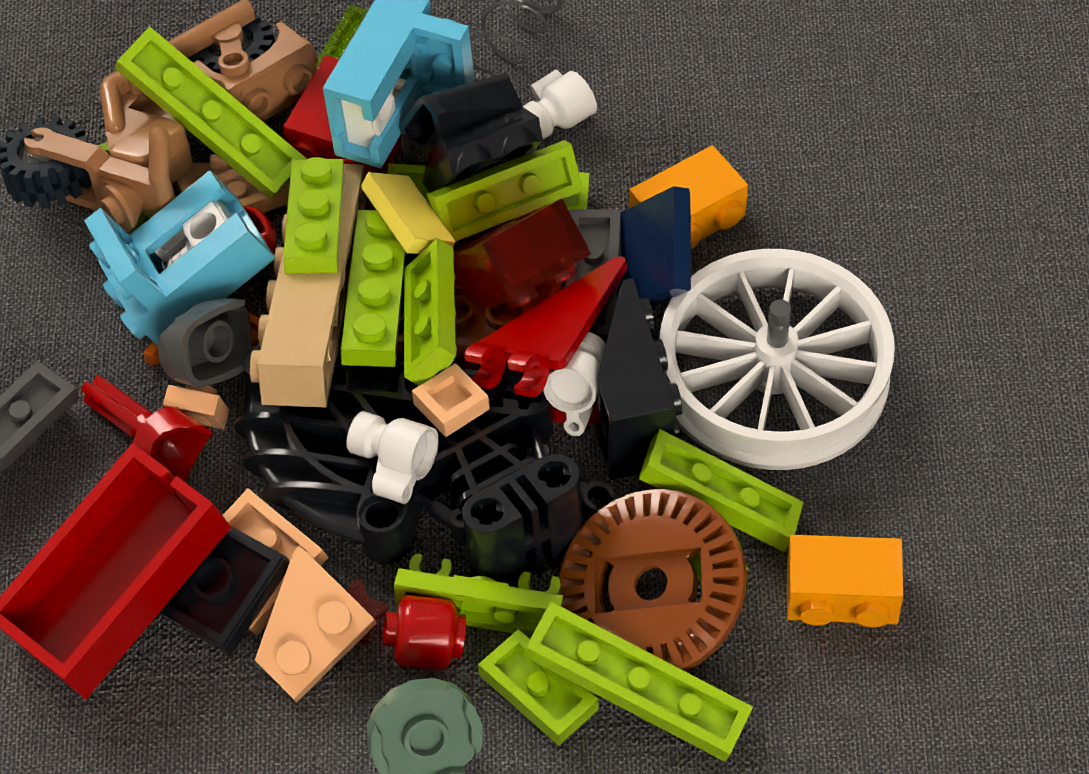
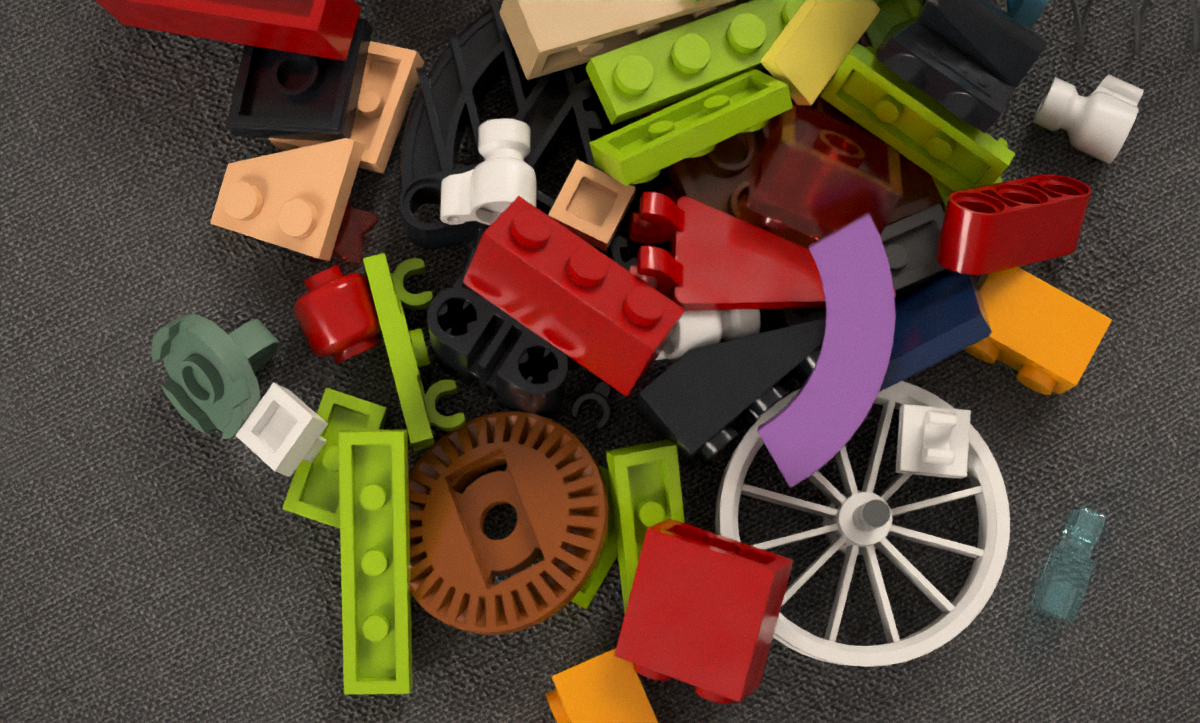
camera: 60 degrees right, 25 degrees up
(500, 688) = (283, 431): none -> white tile
(516, 425) = (572, 295): none -> red brick
(611, 168) = (1012, 223): none -> red beam
(661, 277) = (851, 357): none -> medium lavender tile
(743, 274) = (933, 441): none -> white tile
(794, 457) = (703, 610): none -> red brick
(874, 255) = (1068, 567): none -> clear light blue bar

